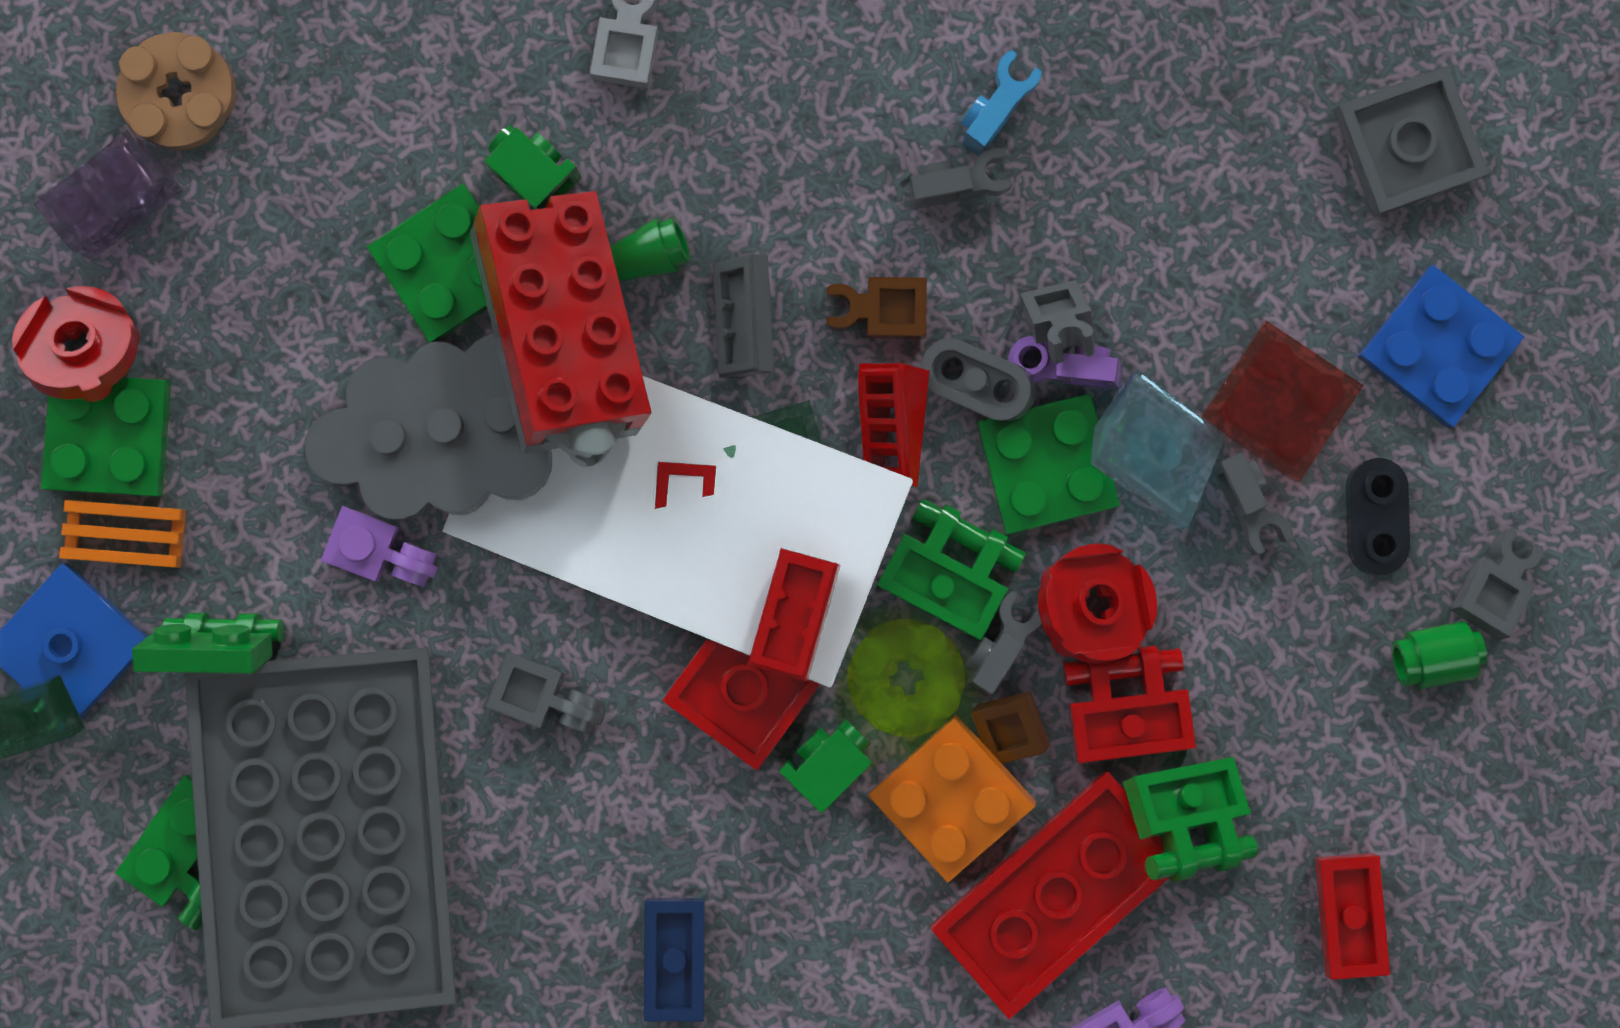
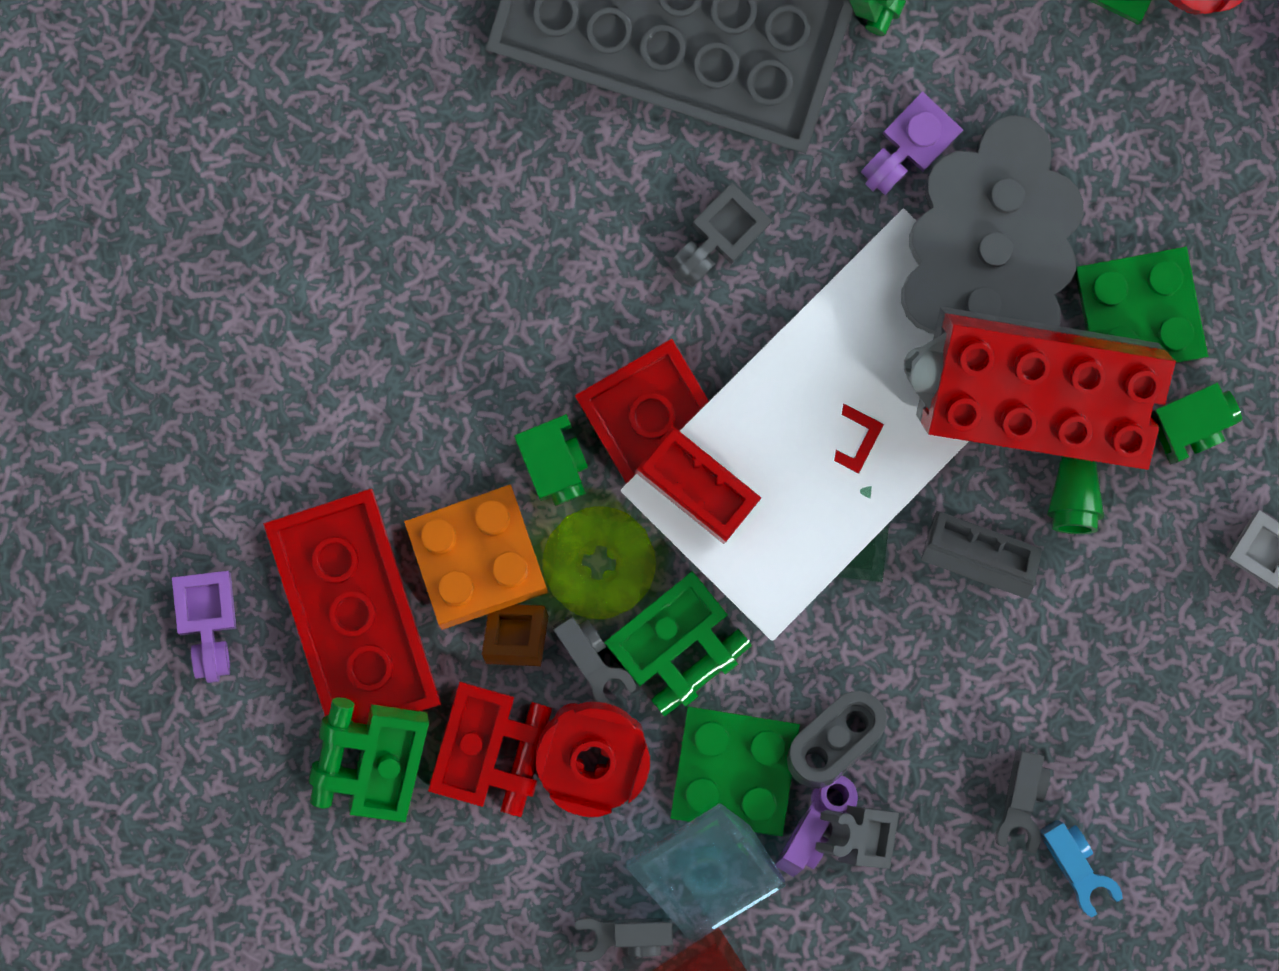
camera: 110 degrees right, 0 degrees up
(674, 959) = (440, 254): dark blue plate -> none
(891, 308) = (934, 689): reddish brown plate -> none
(909, 401) = (853, 670): red slope -> none
(1352, 916) = (221, 866): red plate -> none

